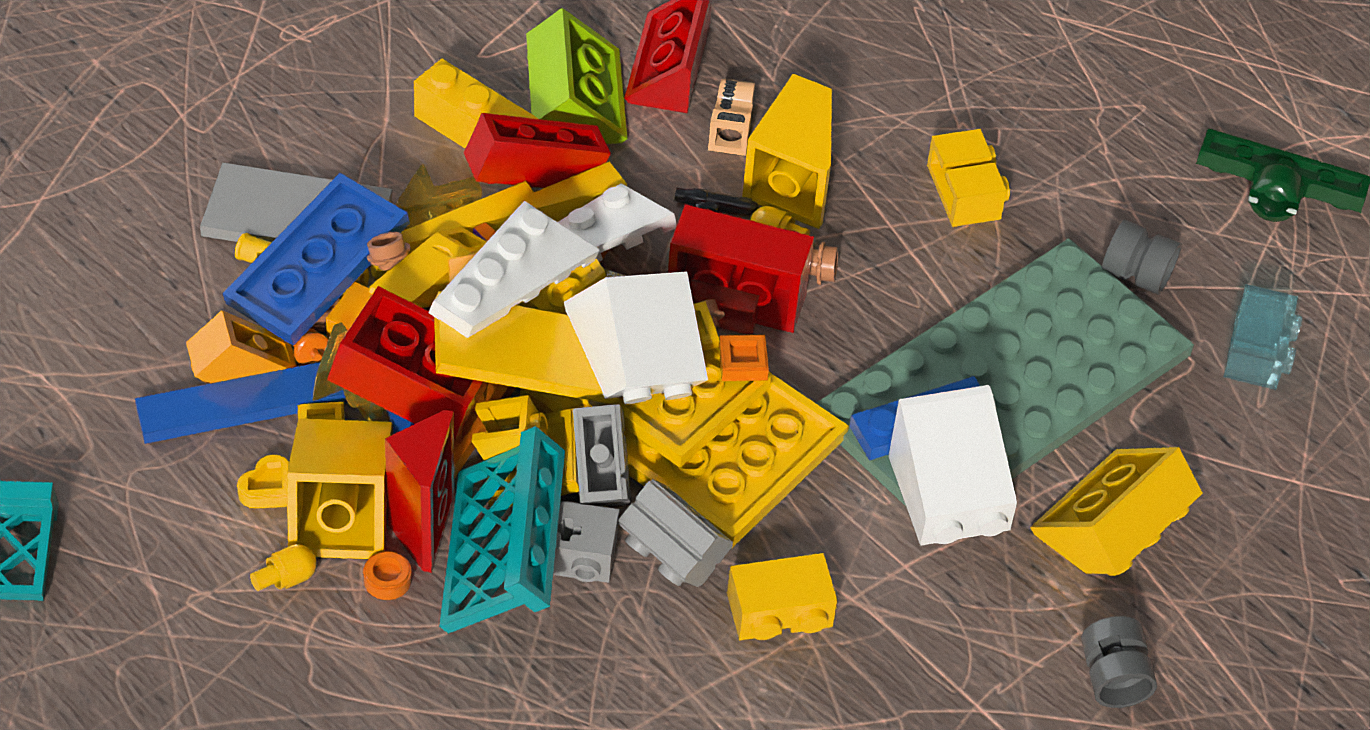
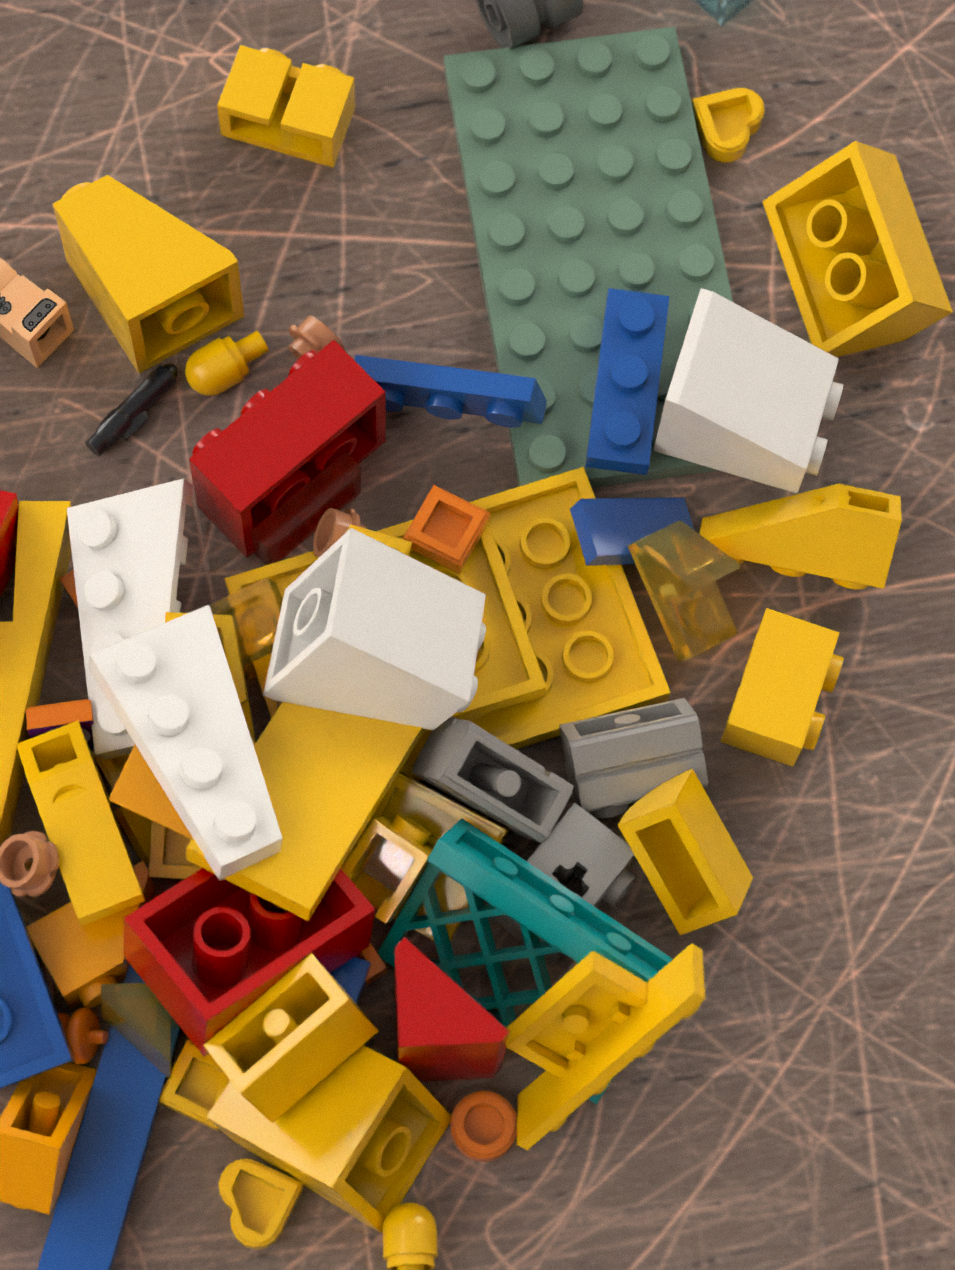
camera: 60 degrees left, 20 degrees up
(360, 407) = (290, 1038): none -> yellow brick
(471, 557) = (593, 1029): none -> yellow bracket
(631, 586) = (687, 853): none -> yellow brick
(805, 511) = (681, 581): none -> clear yellow slope
(826, 470) = (611, 524): none -> blue tile
(841, 331) = (457, 391): none -> blue plate
(906, 575) = (819, 532): none -> yellow slope
(1155, 405) = (727, 122): none -> yellow tile

